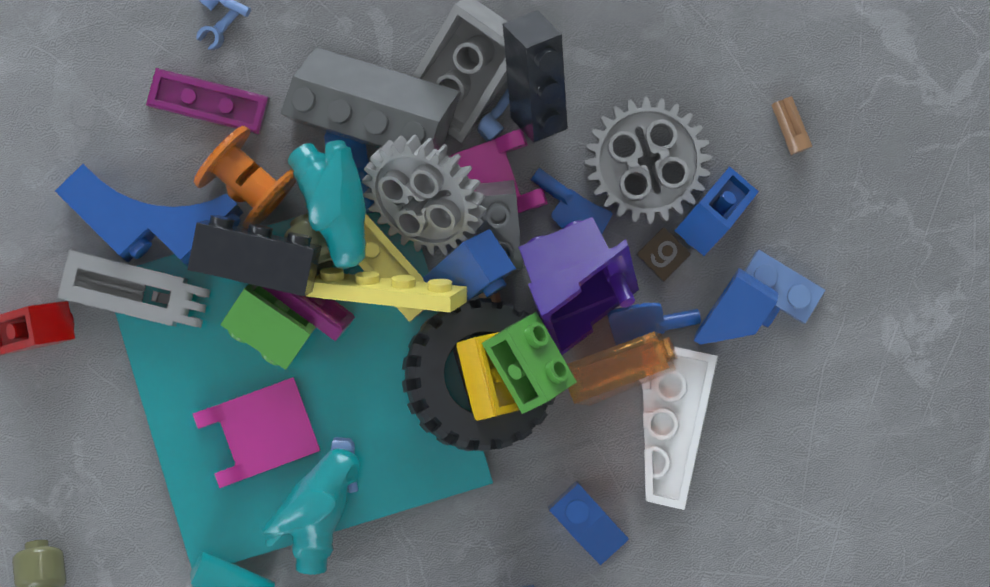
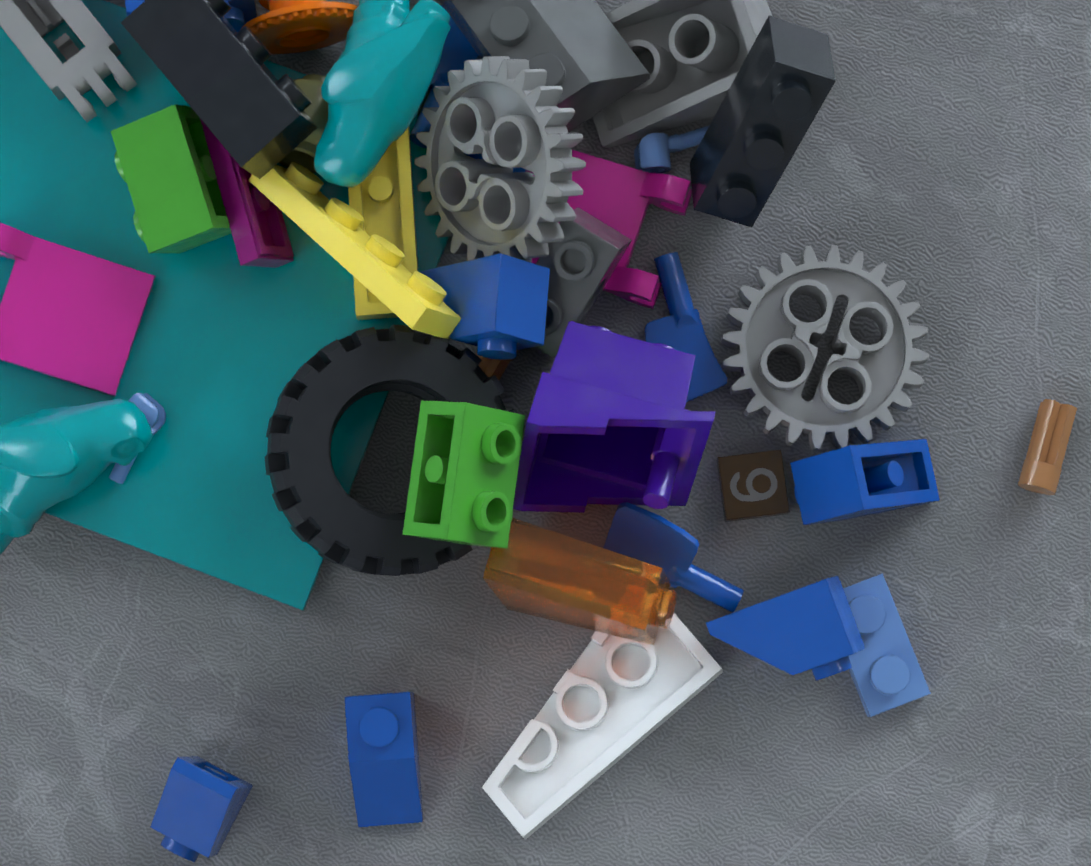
camera: 35 degrees right, 5 degrees down
(484, 385) = (383, 463): yellow slope -> none

